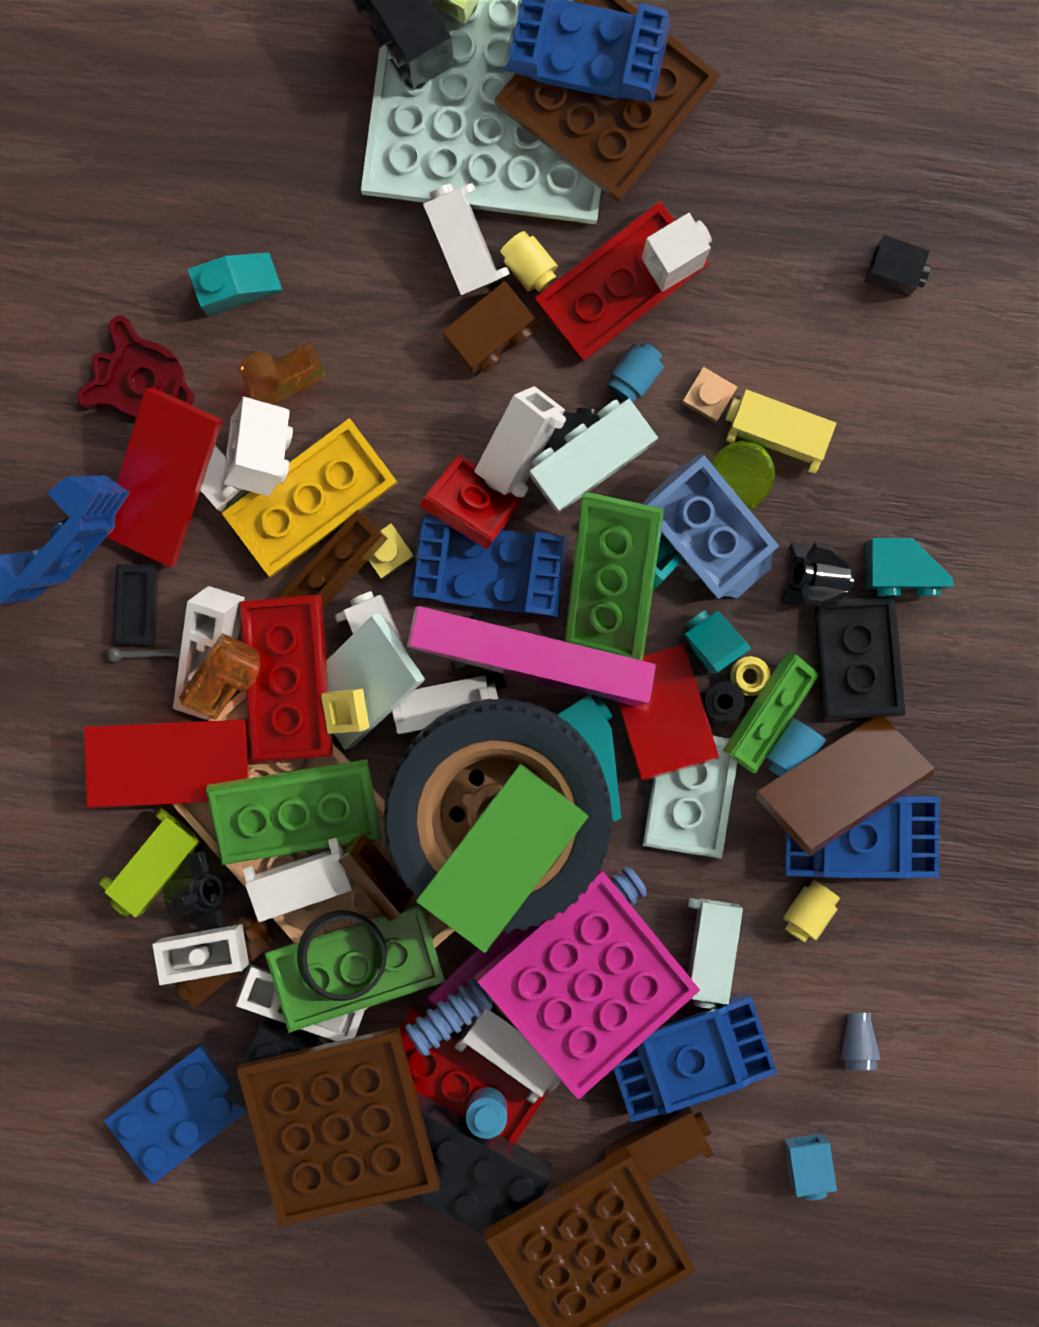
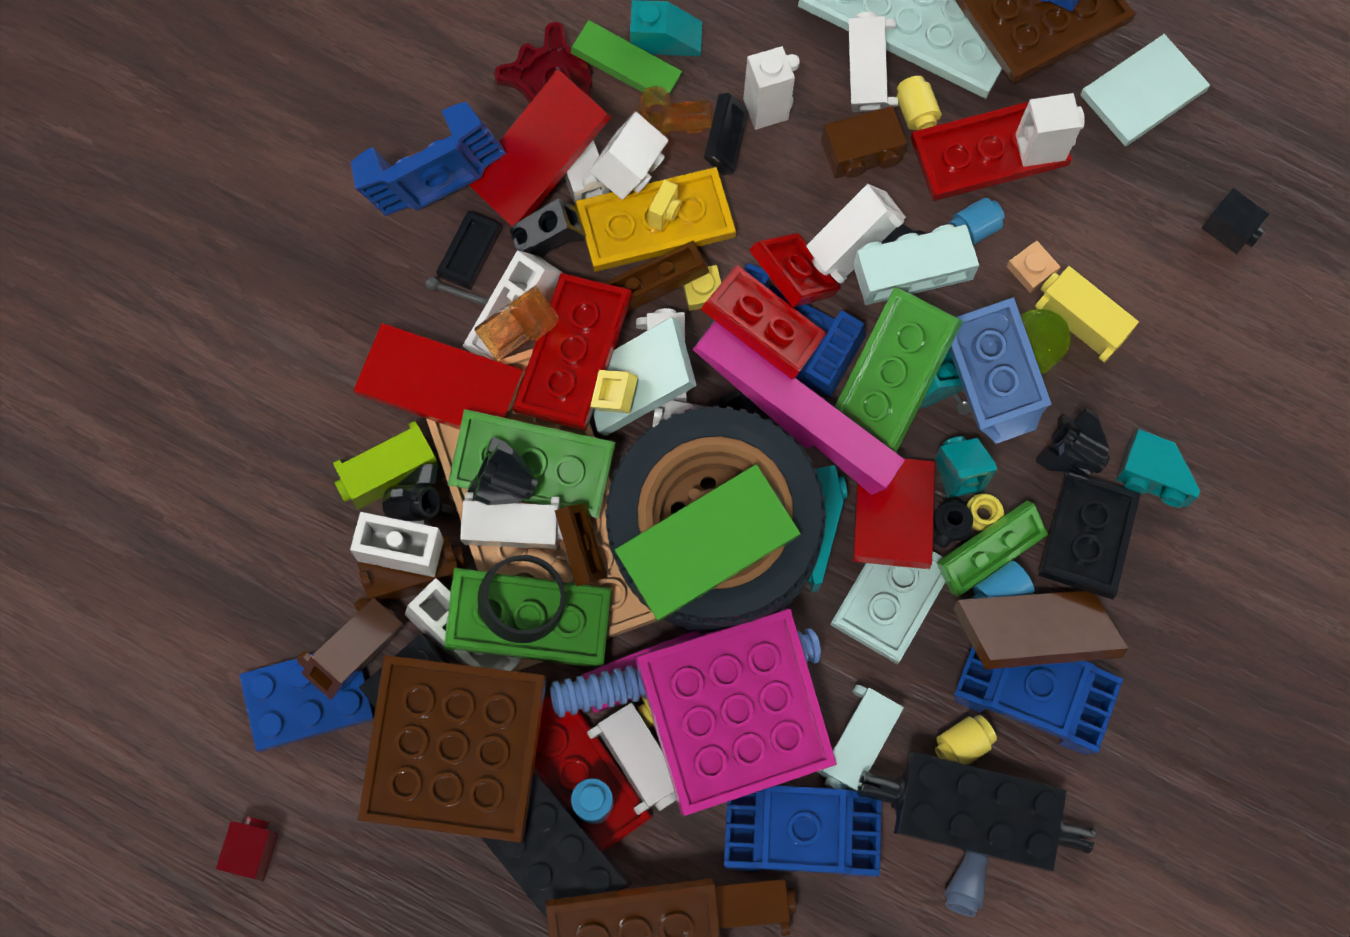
camera: 20 degrees right, 15 degrees down
(186, 1278) = (247, 849): none -> dark red brick
(200, 1060) = (350, 647): none -> reddish brown brick
(206, 333) = (623, 59): none -> bright green tile
(207, 556) = (548, 228): none -> black leg
(274, 846) = (503, 476): none -> black brick
(315, 488) = (664, 206): none -> light yellow plate
(344, 375) = (726, 134): none -> black tile
(371, 312) = (769, 86): none -> white brick
(465, 583) = (763, 322): none -> red tile
(756, 148) = (1144, 90): none -> light aqua tile
(846, 979) = (978, 811): none -> black plate

